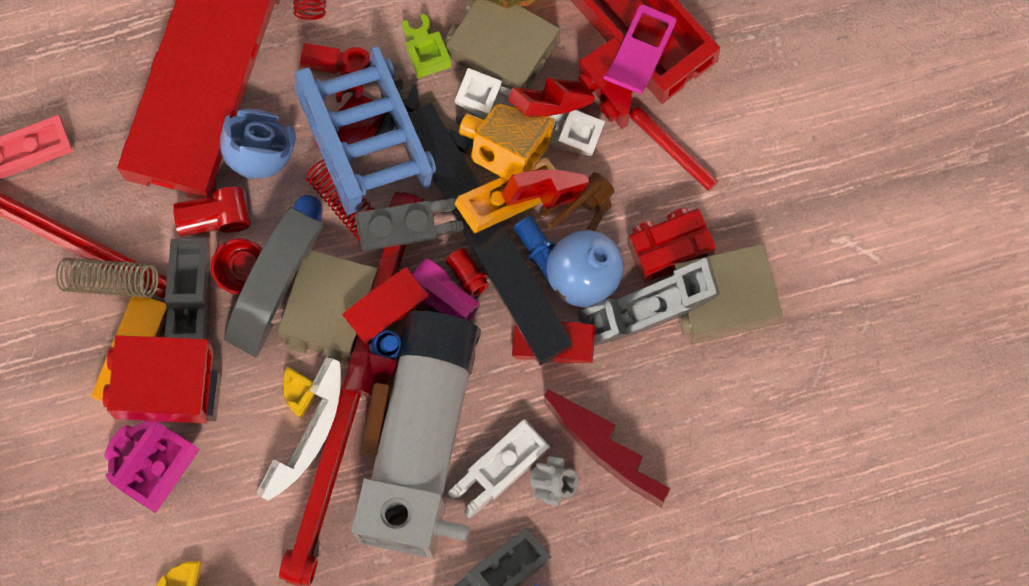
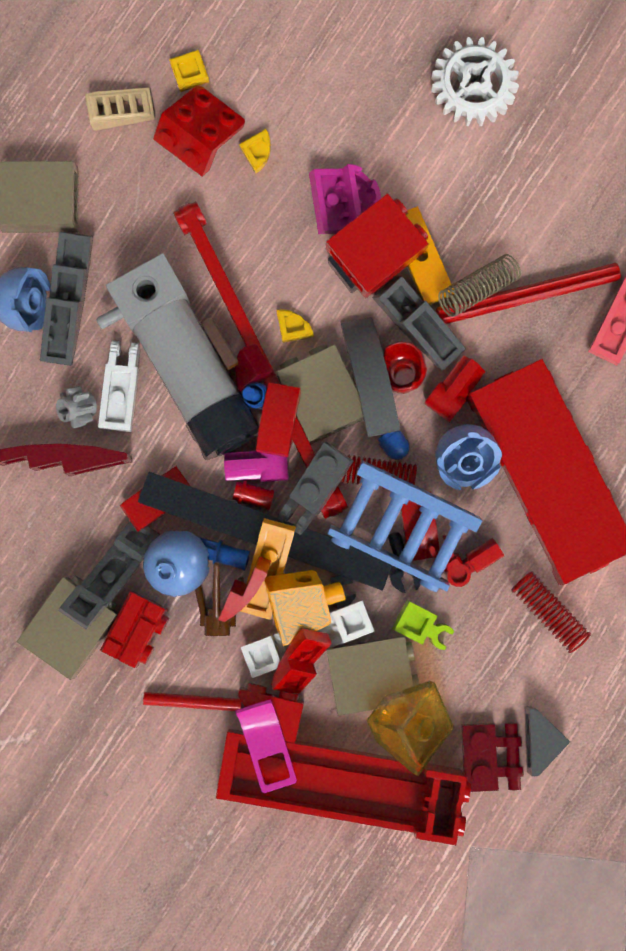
camera: 135 degrees right, 10 degrees up
(327, 387) = (250, 264): white slope -> none

